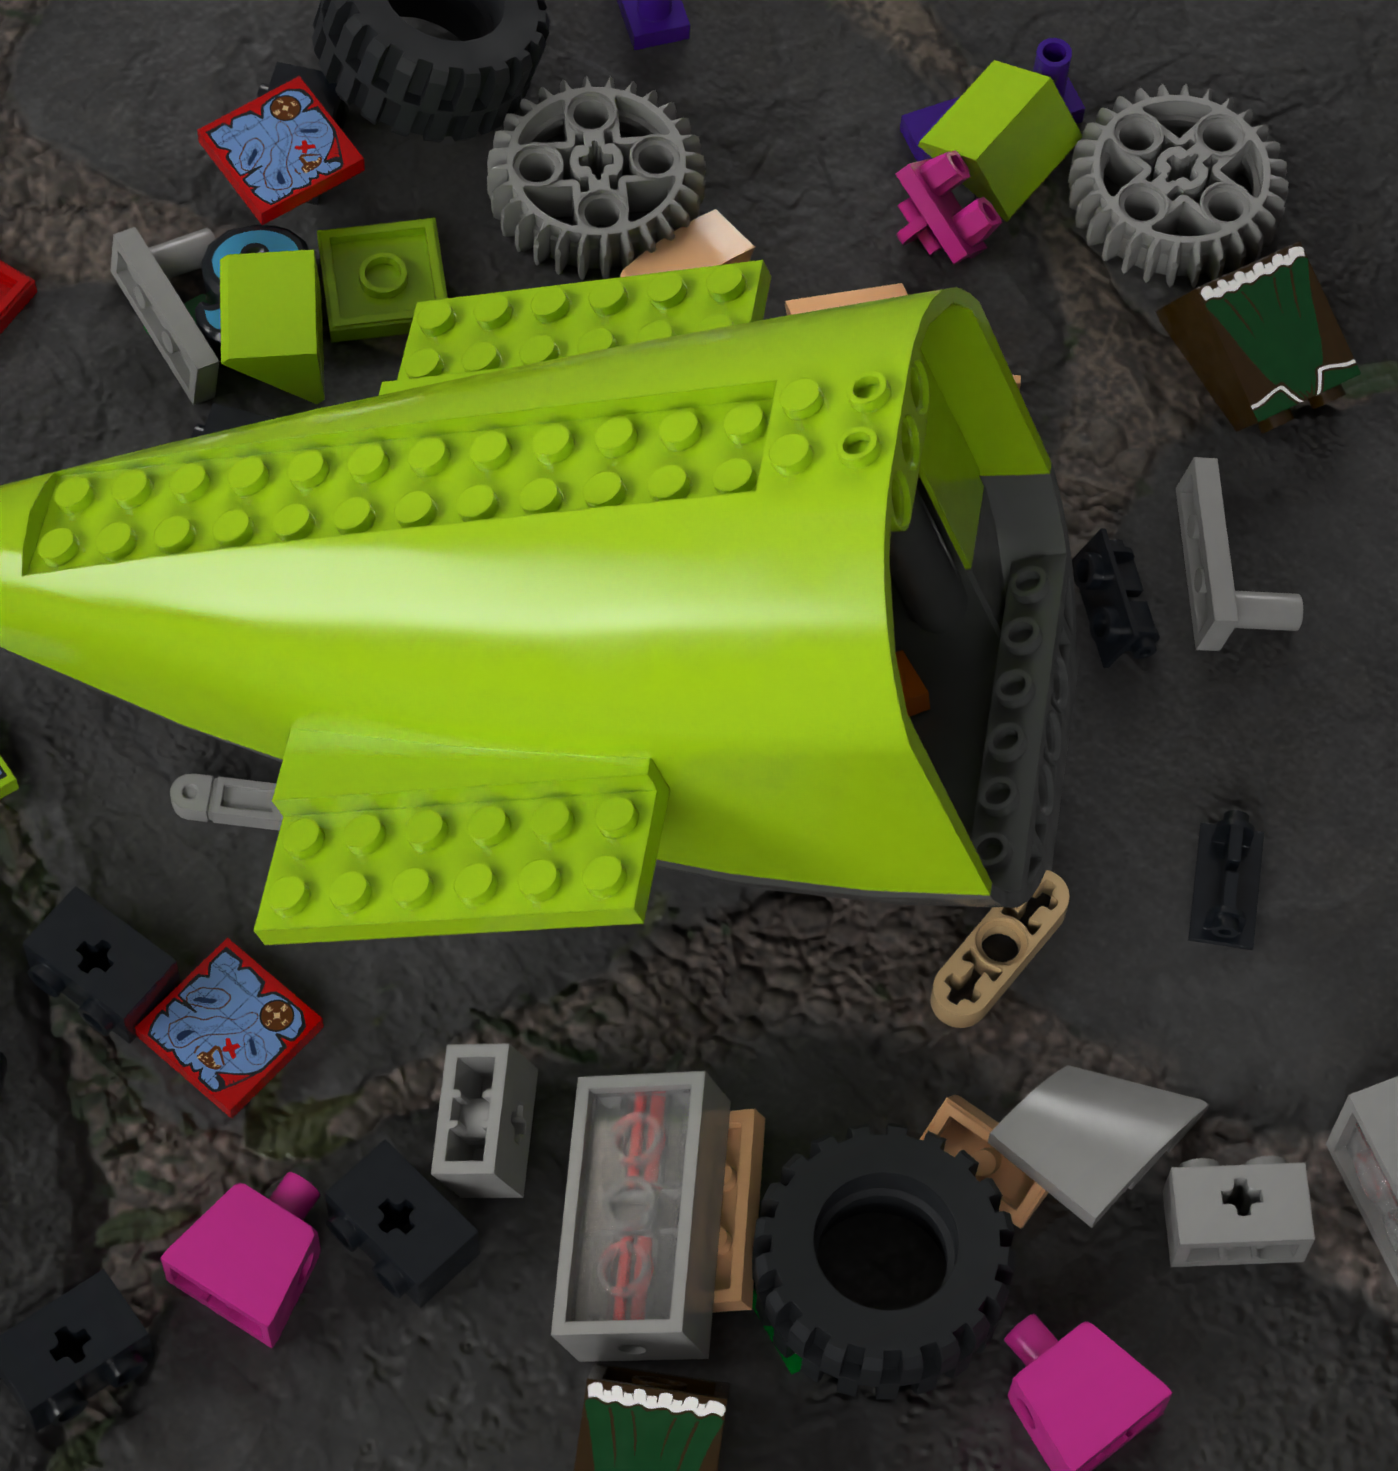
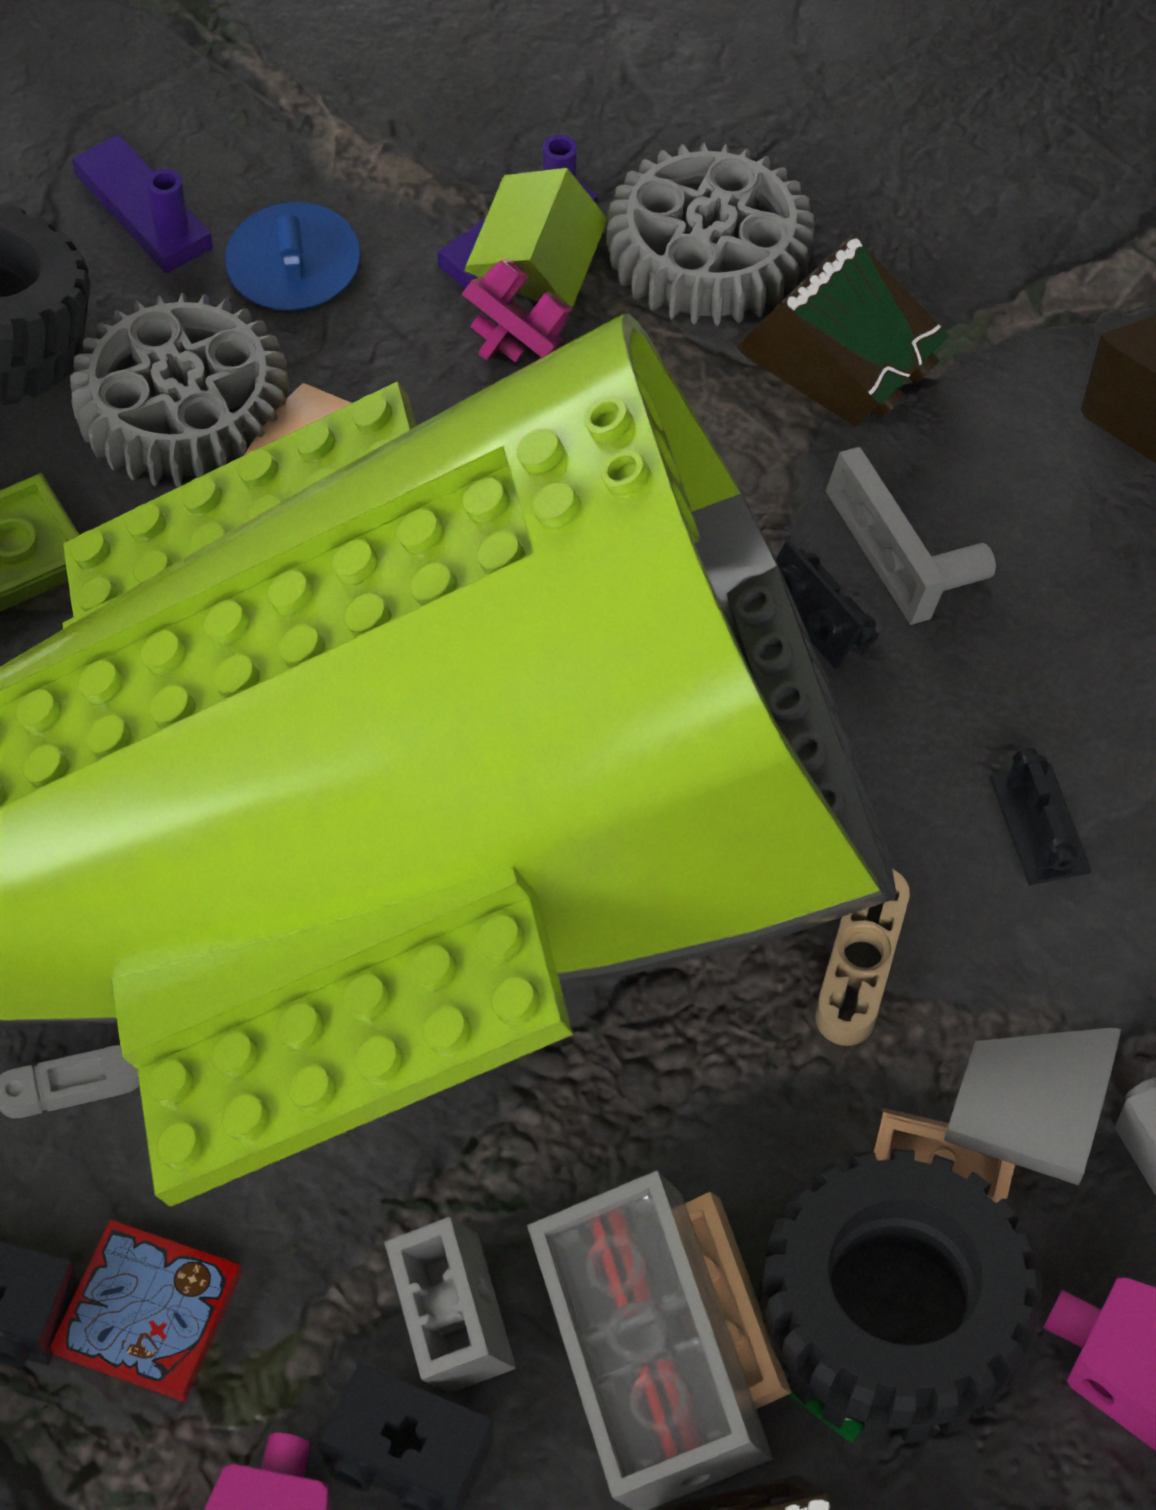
camera: 20 degrees left, 5 degrees down
(761, 73) = (292, 256): none -> blue shield

